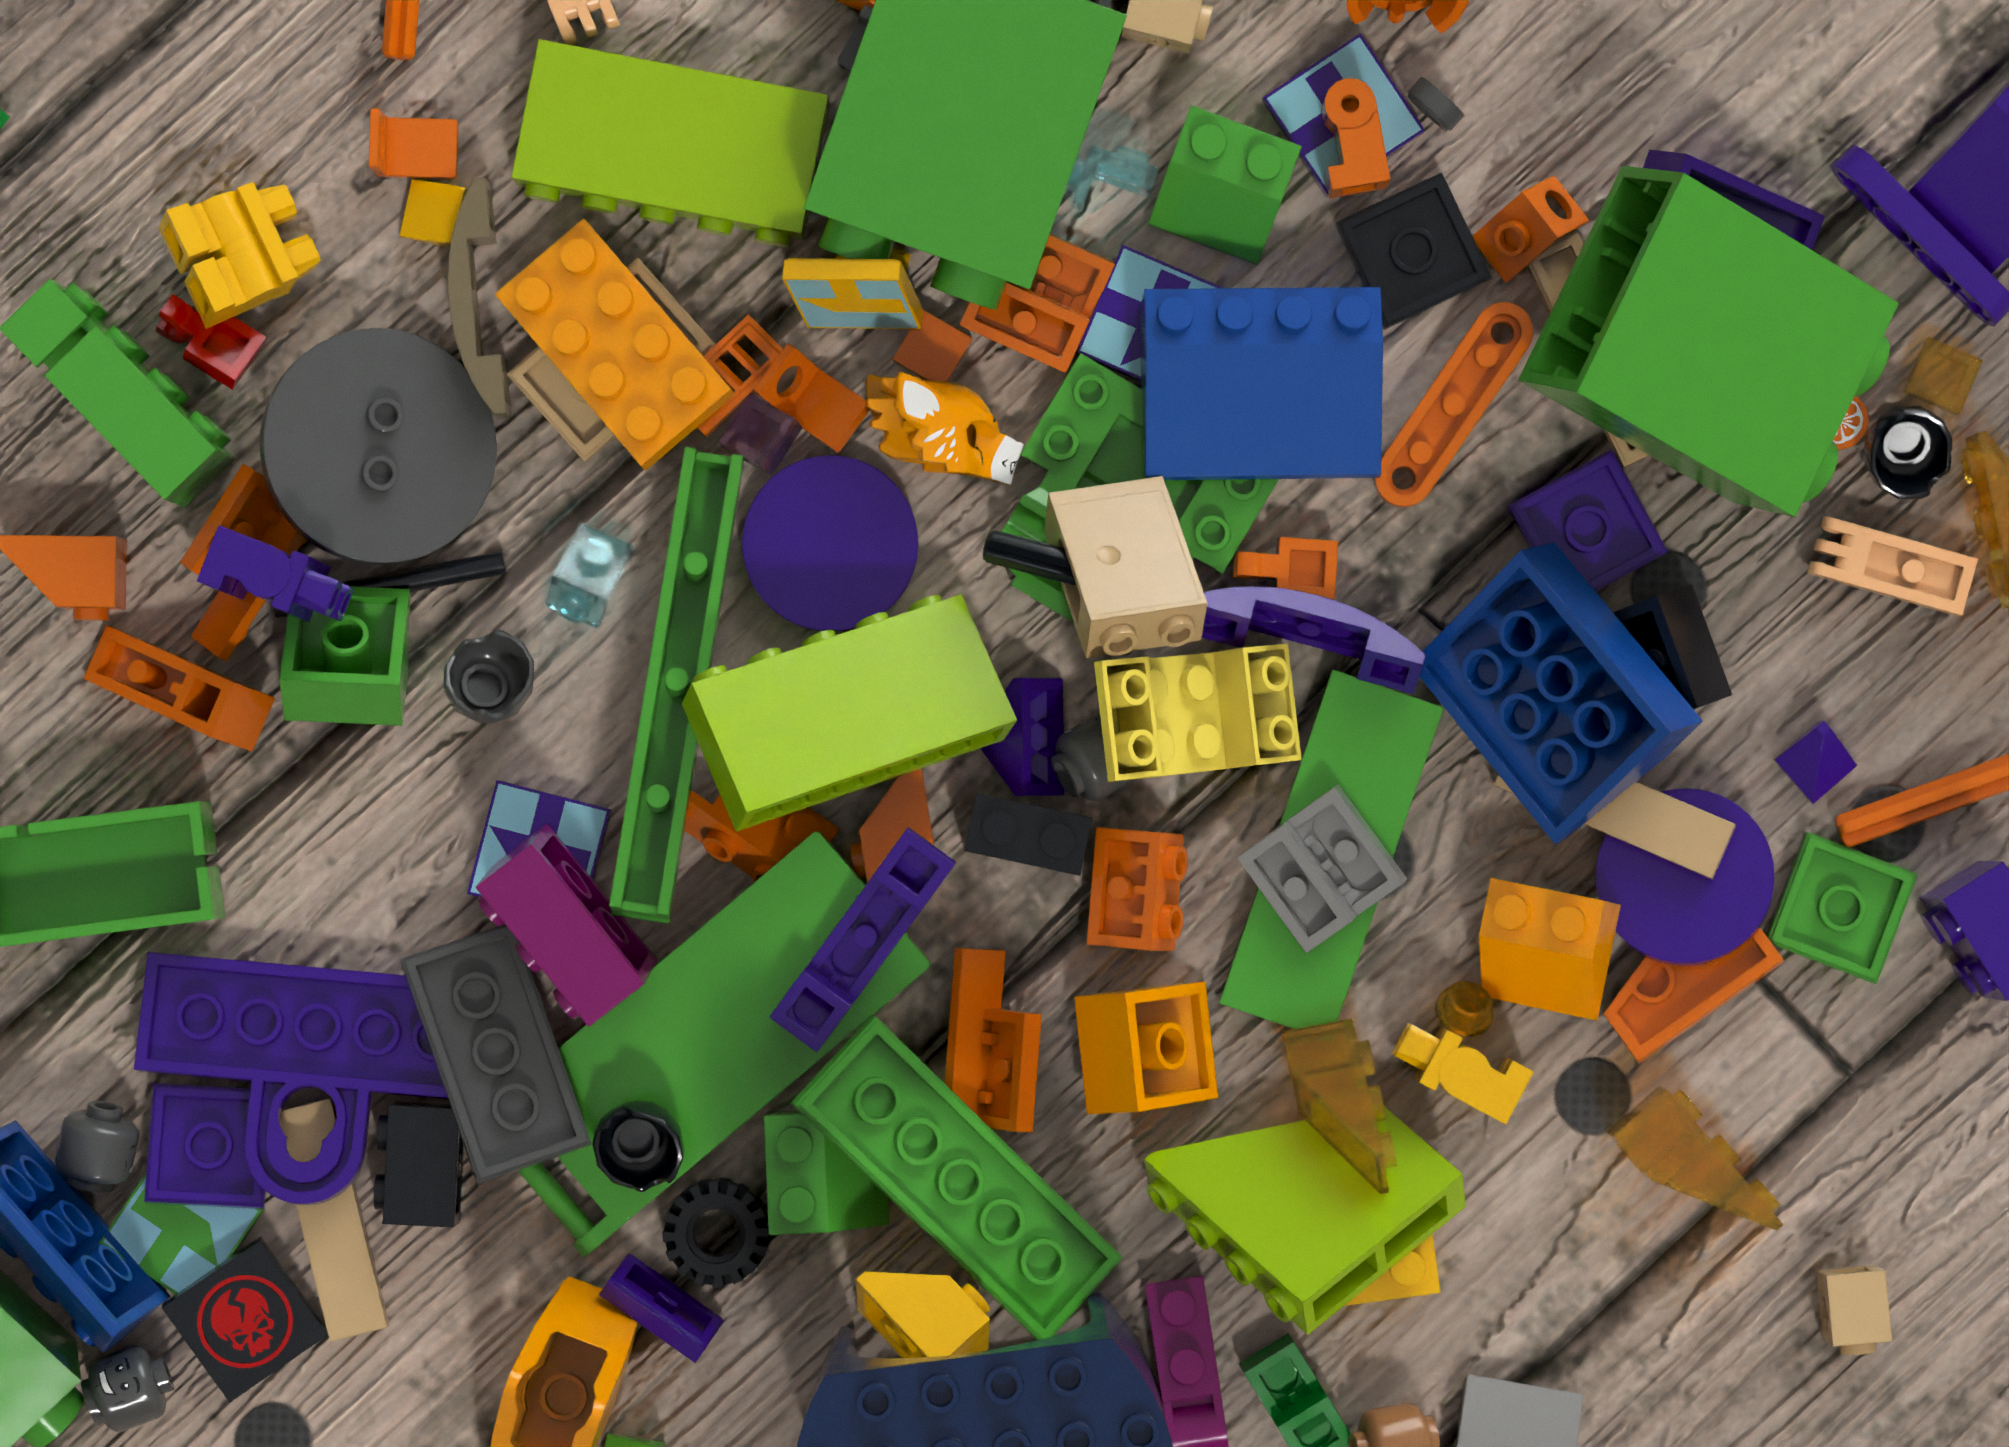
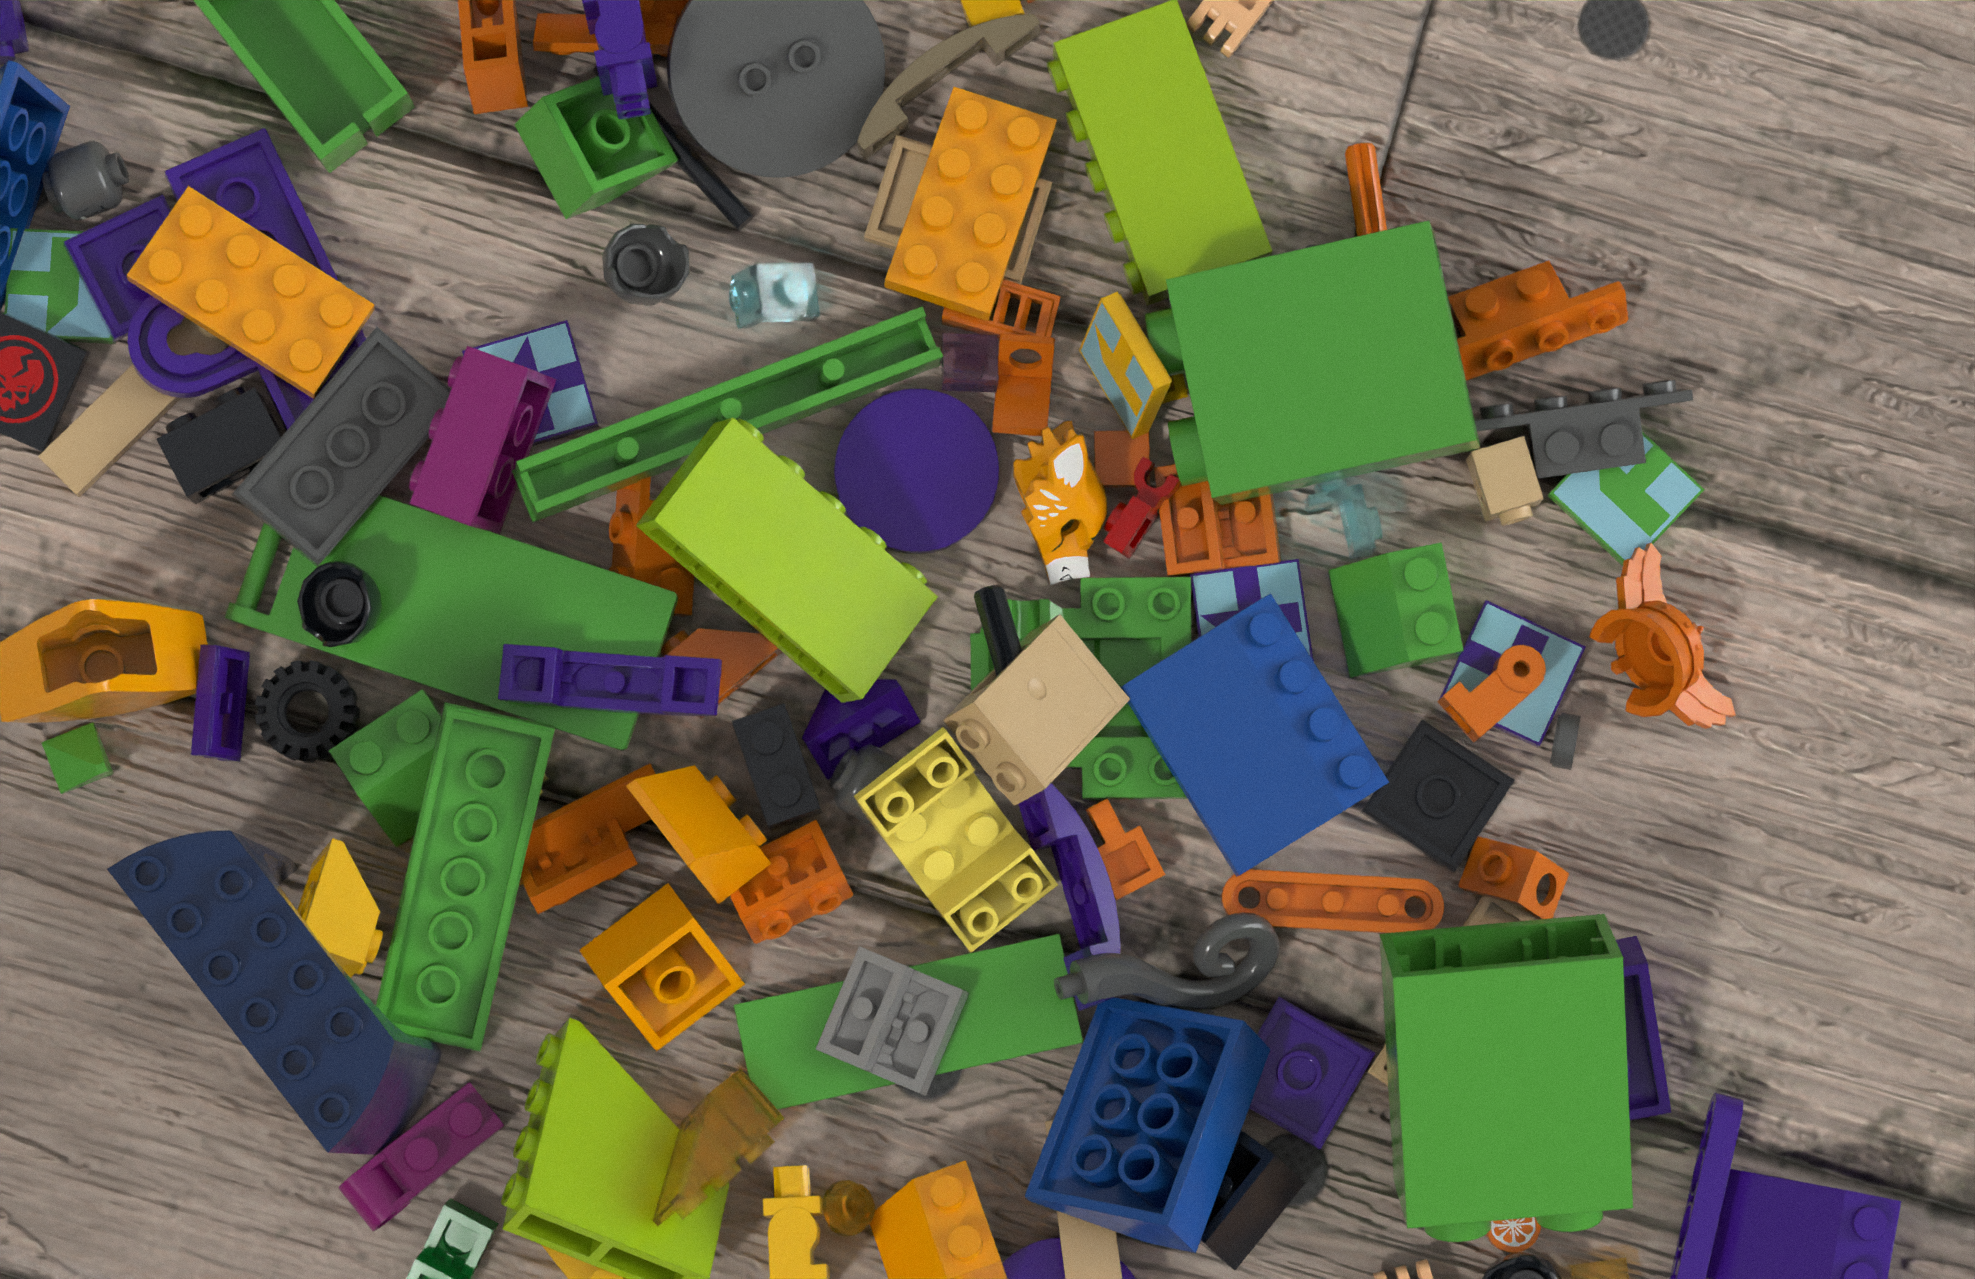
camera: 60 degrees right, 5 degrees down
(297, 1056) = (250, 292): none -> light orange plate
(997, 378) = (1132, 521): none -> red plate
(1045, 935) = (703, 828): none -> light orange slope
(1410, 636) = (1122, 974): none -> dark grey plant

